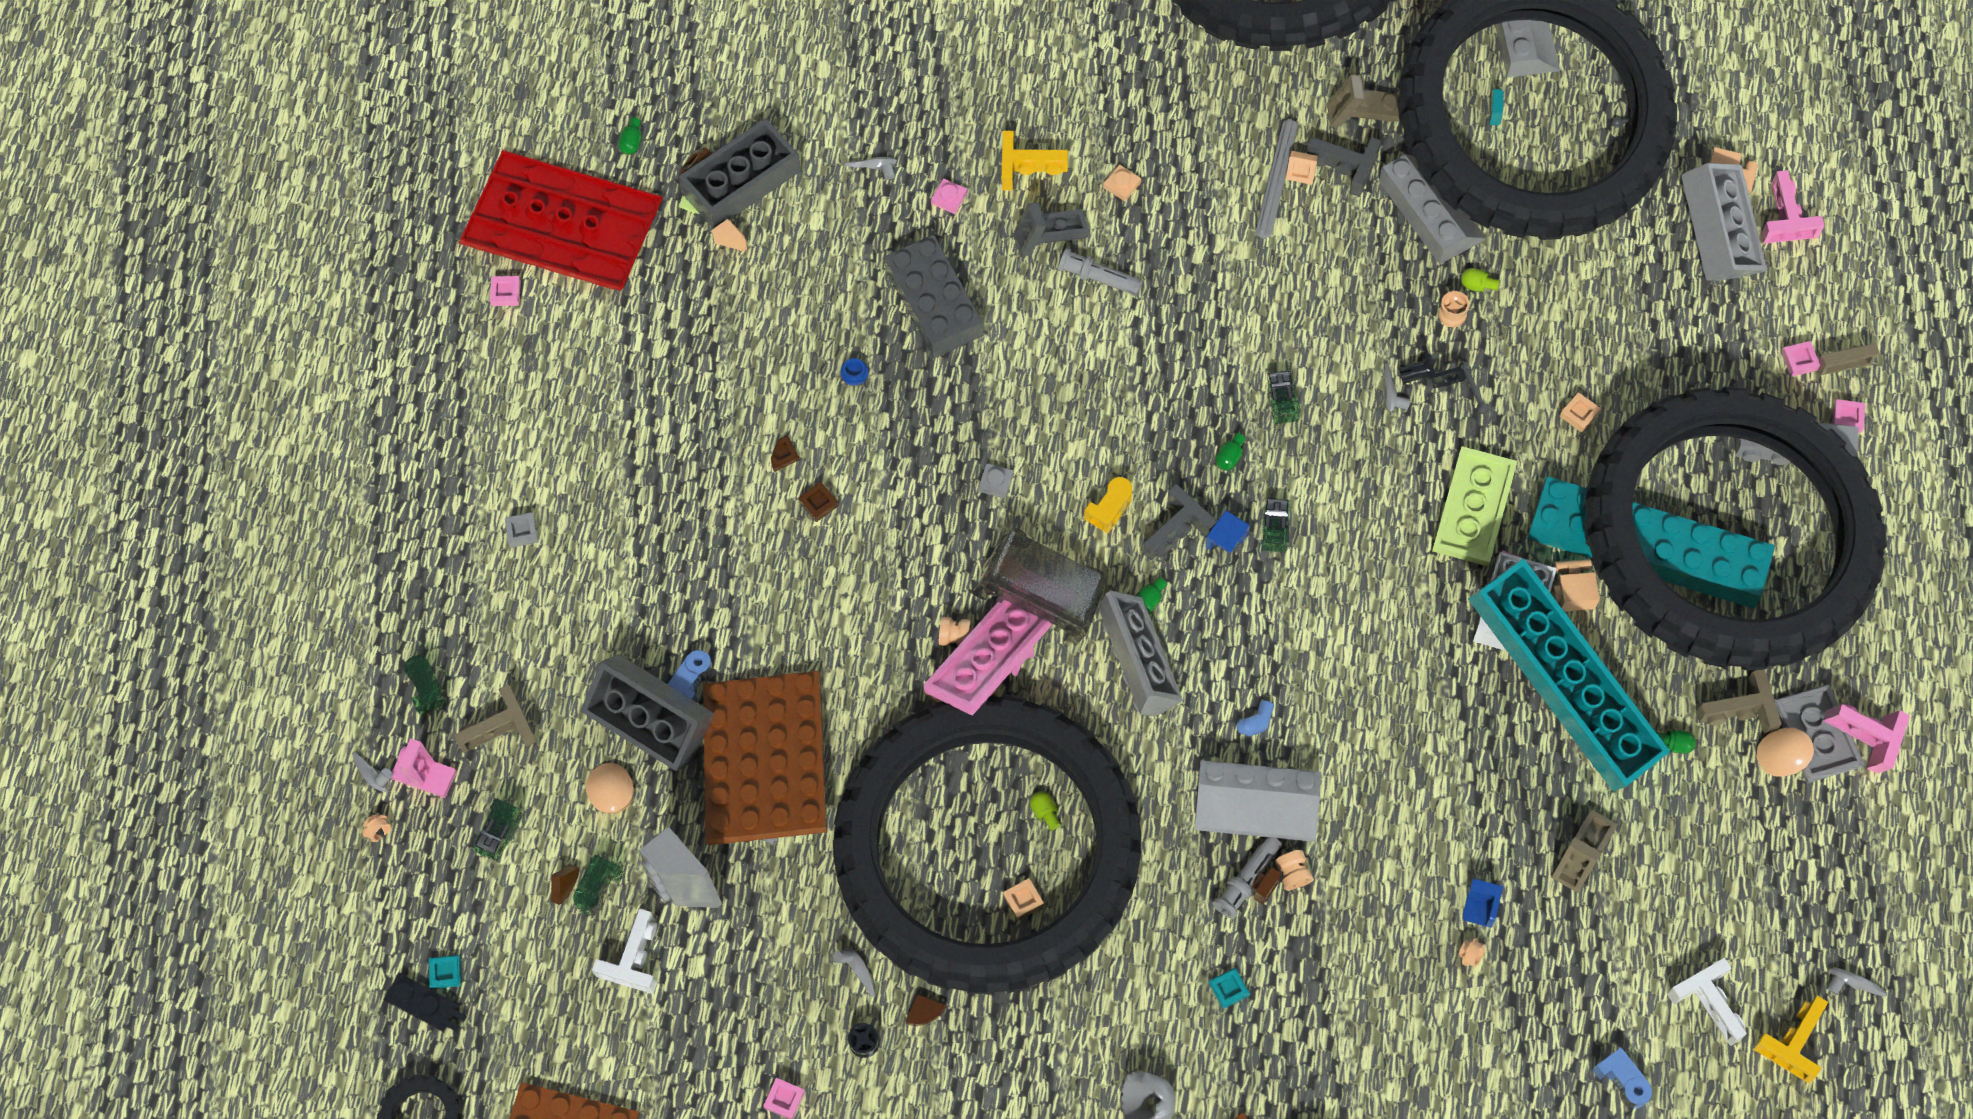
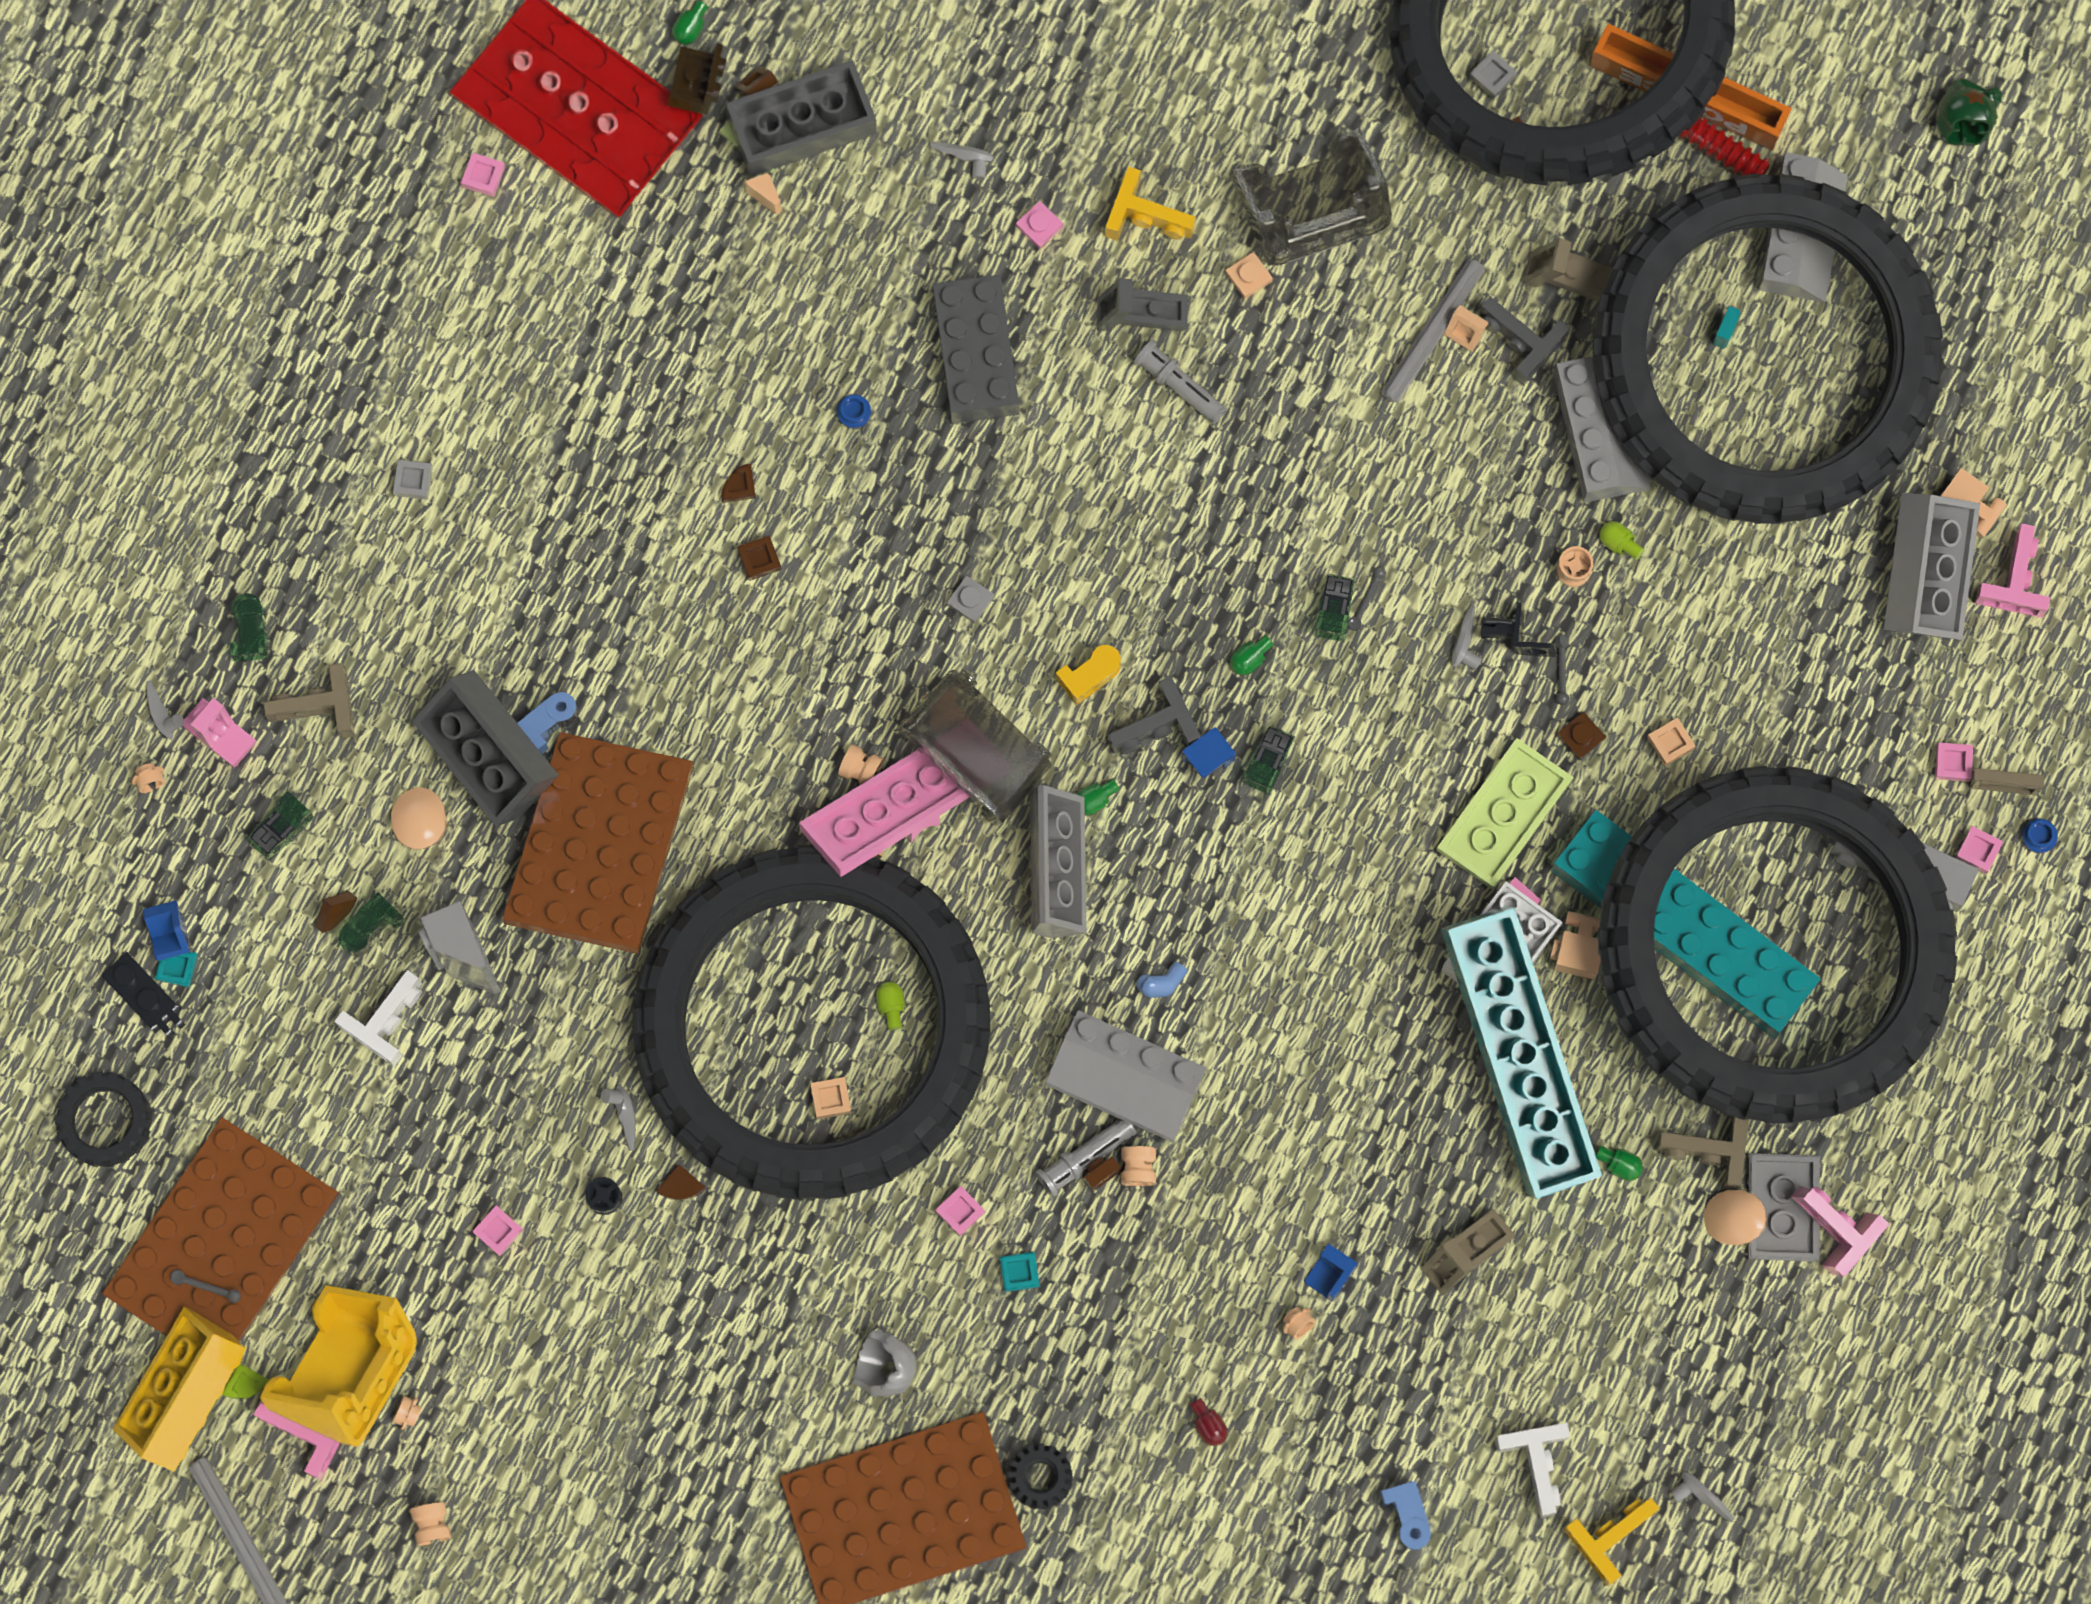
camera: 15 degrees right, 10 degrees up
(427, 943) = (167, 930): none -> blue panel
(649, 171) = (695, 79): none -> dark brown bracket
(1157, 116) = (1316, 203): none -> clear smoke windscreen
(1162, 954) = (960, 1211): none -> bright pink plate
(1305, 363) = (1355, 622): none -> dark grey hinge
(1432, 1060) = (1209, 1424): none -> dark red cylinder
(1509, 431) = (1581, 736): none -> reddish brown plate
(1889, 391) = (2039, 835): none -> blue plate

